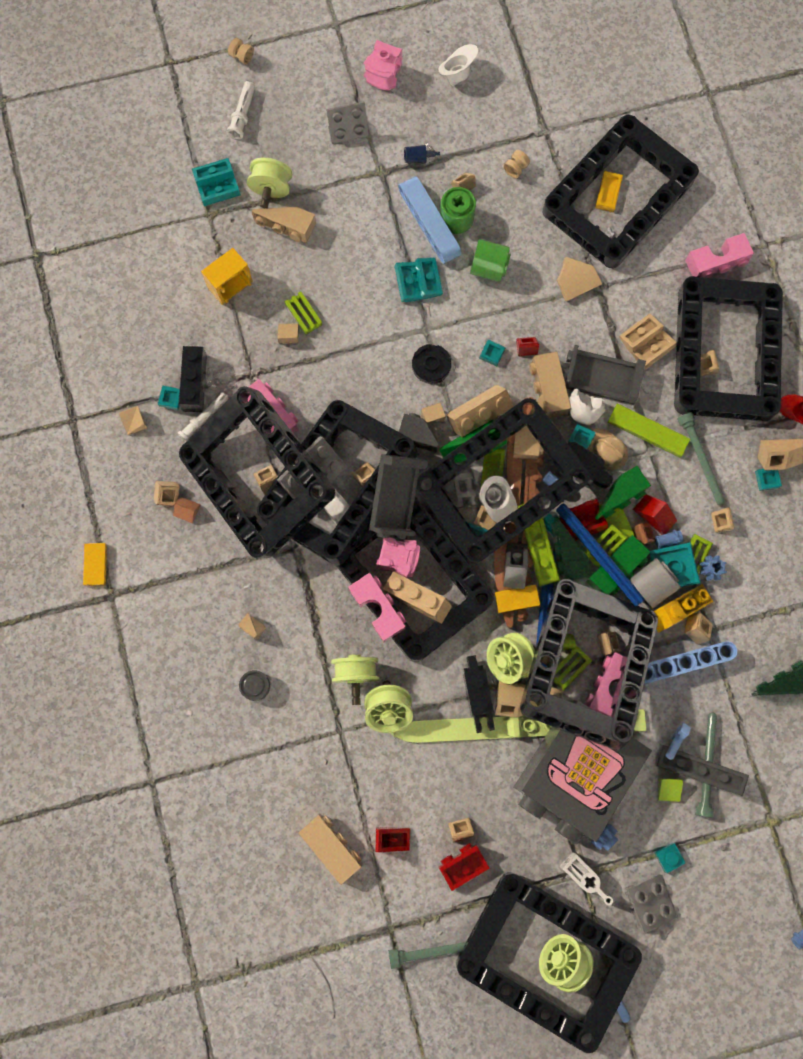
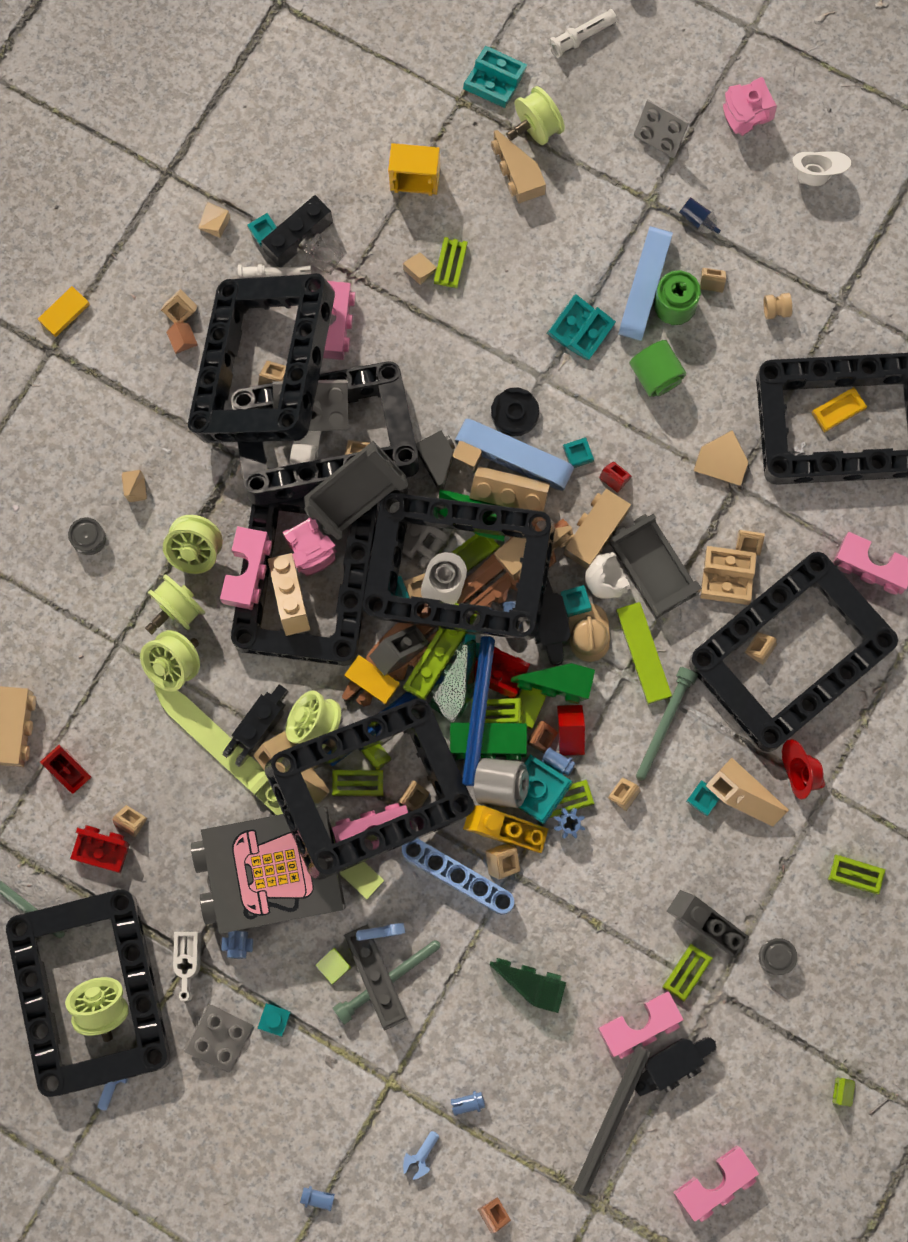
camera: 50 degrees right, 0 degrees up
(328, 625) = (192, 544): none -> yellowish green wheel
(459, 387) = (516, 454): none -> light blue beam
(639, 310) = (750, 541): none -> tan slope

